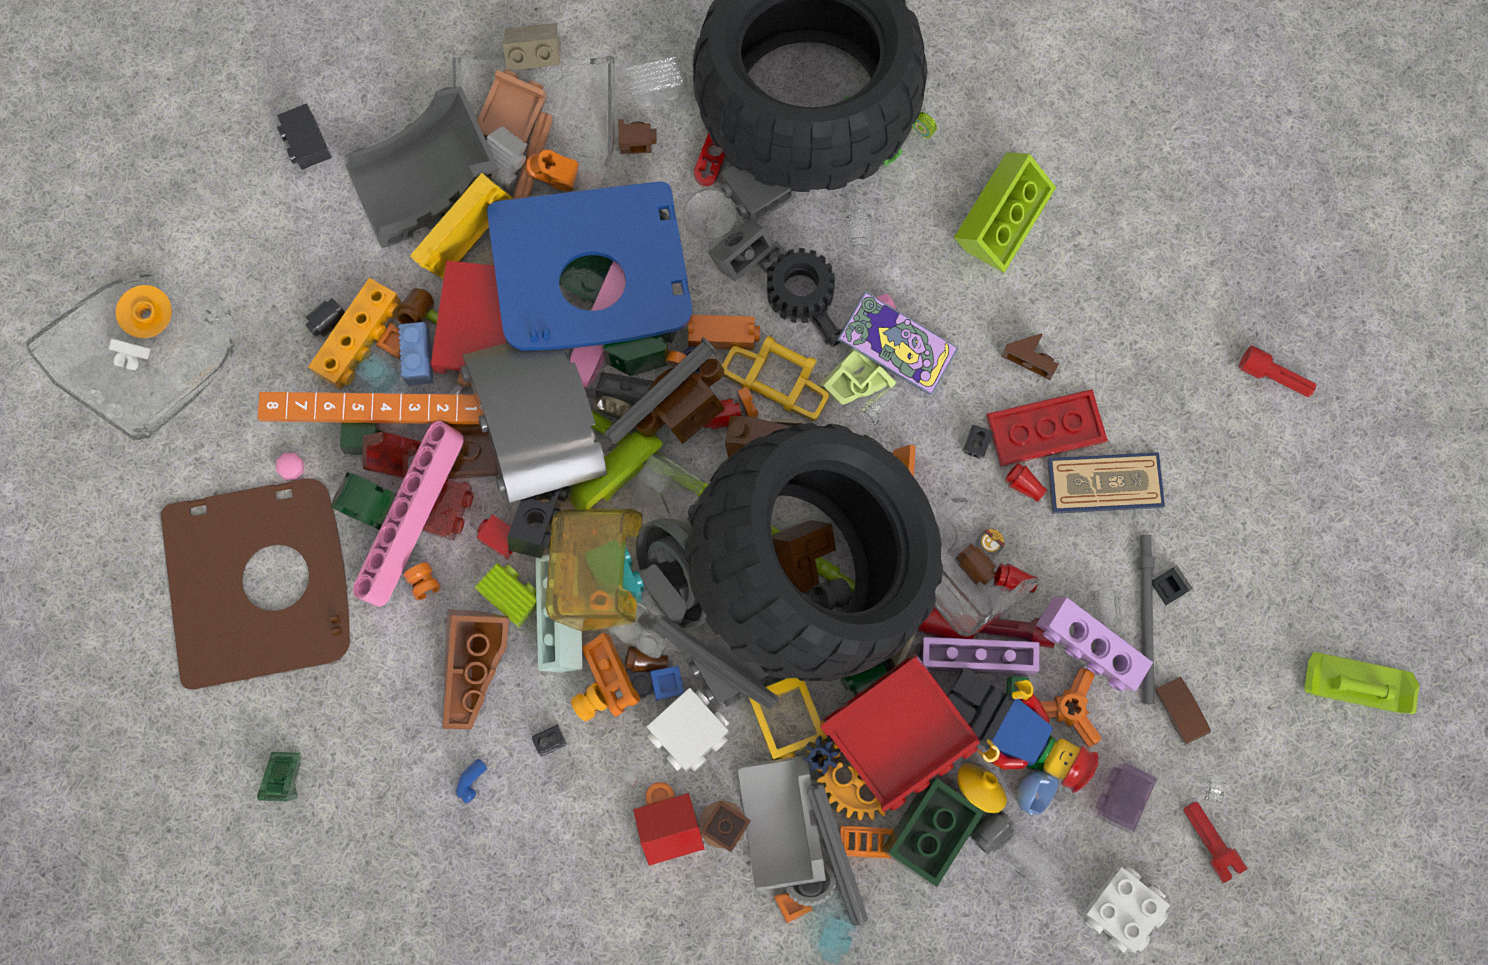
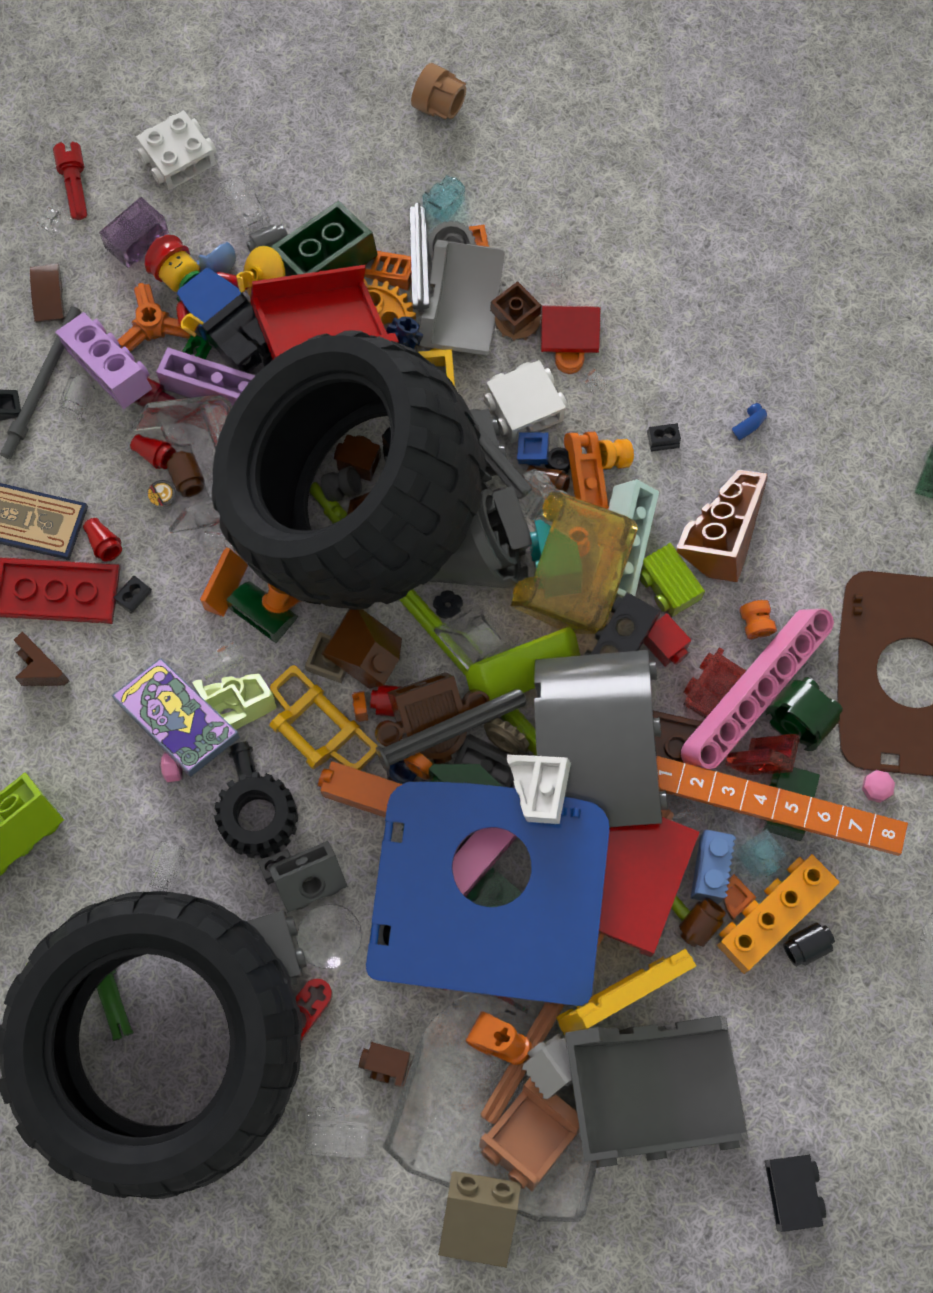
camera: 165 degrees left, 5 degrees down
(567, 344) = (540, 785): none -> white wing

